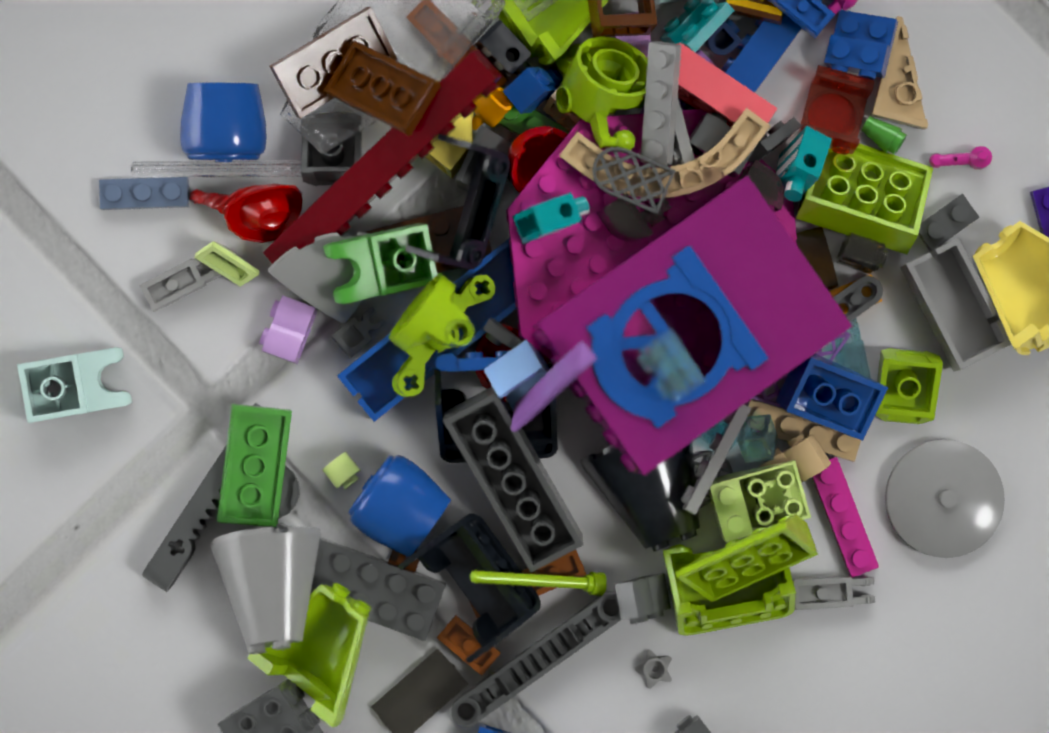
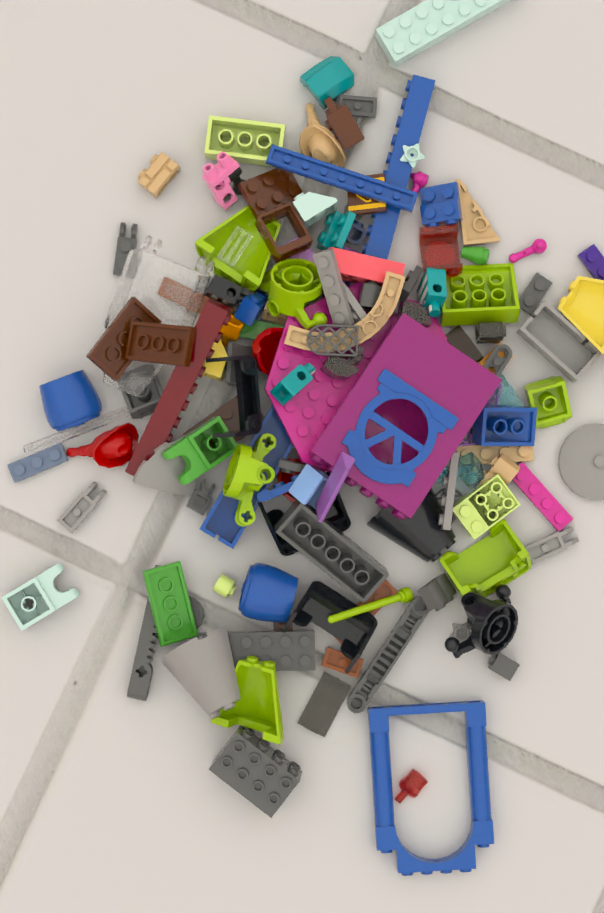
camera: 20 degrees left, 0 degrees up
(227, 263) = (105, 486): yellowish green slope -> none
(289, 329) = (158, 512): lavender brick -> none
(670, 366) = (402, 446): clear light blue brick -> none
(702, 669) = (490, 623): none -> black piece
(750, 559) = (493, 544): lime slope -> none

